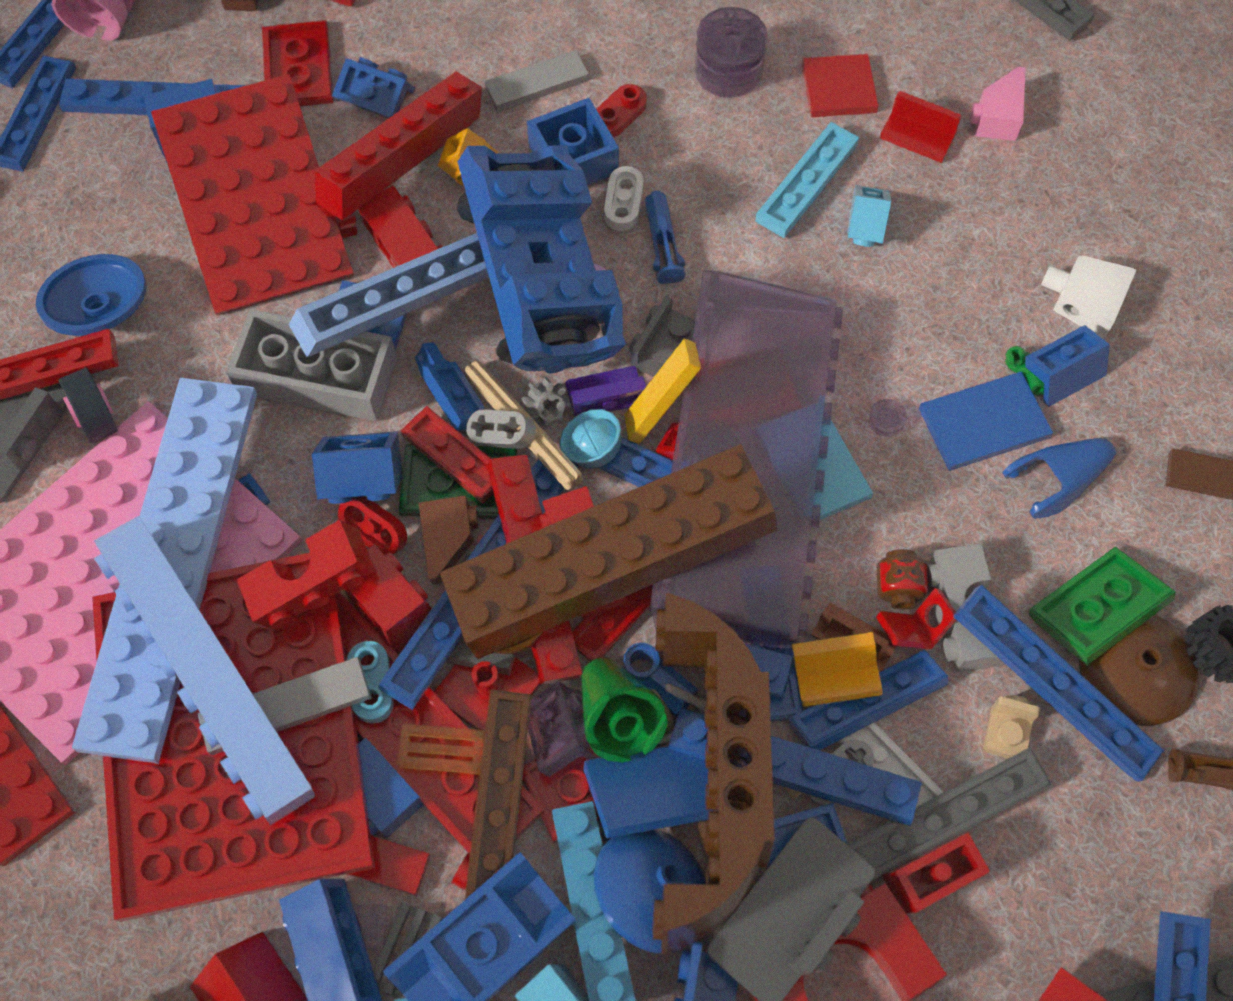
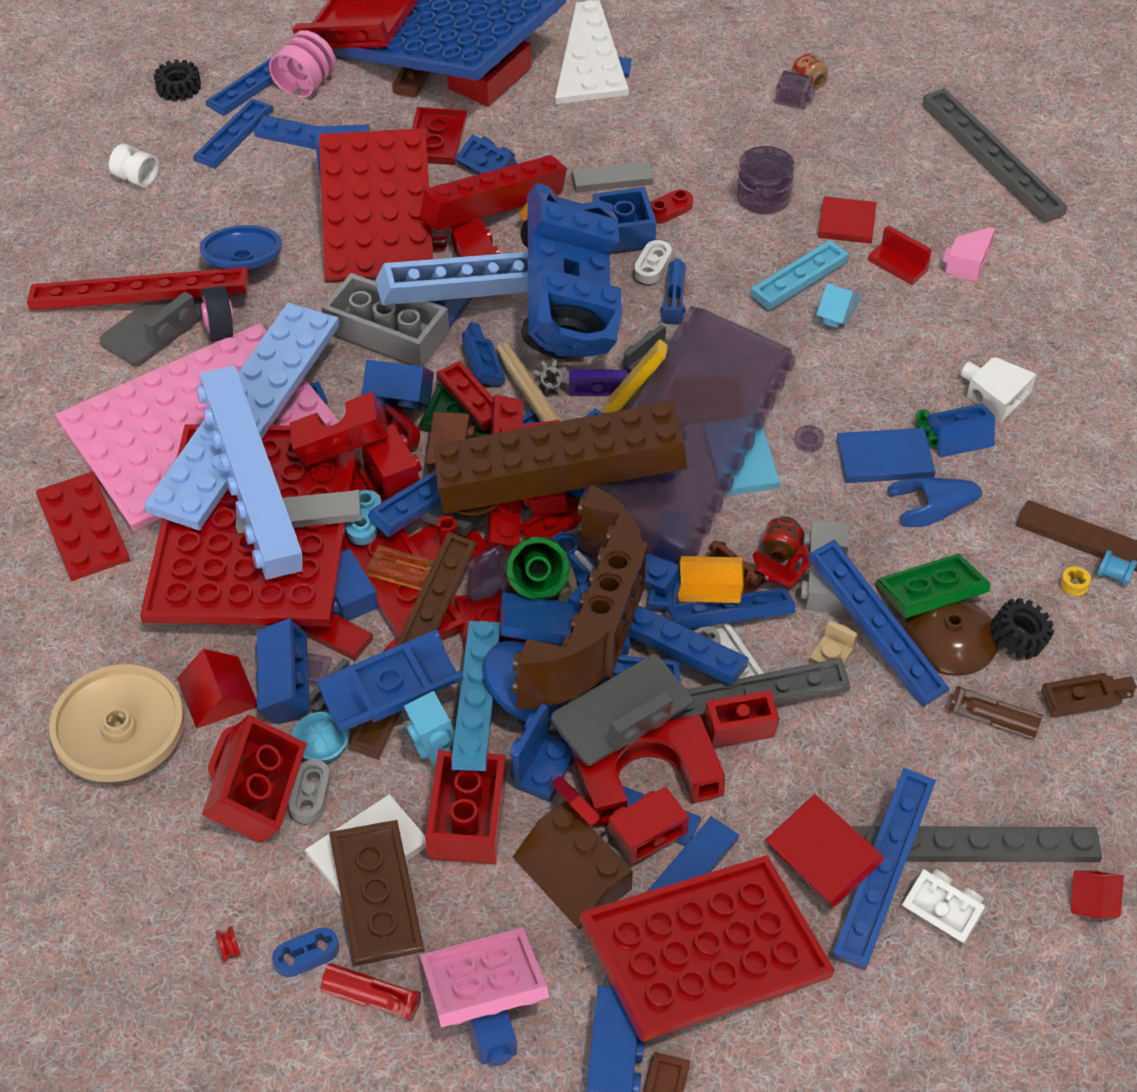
camera: 15 degrees right, 15 degrees down
(502, 421) = (516, 382): light grey beam -> none
(592, 438) = (577, 403): medium azure hat -> none

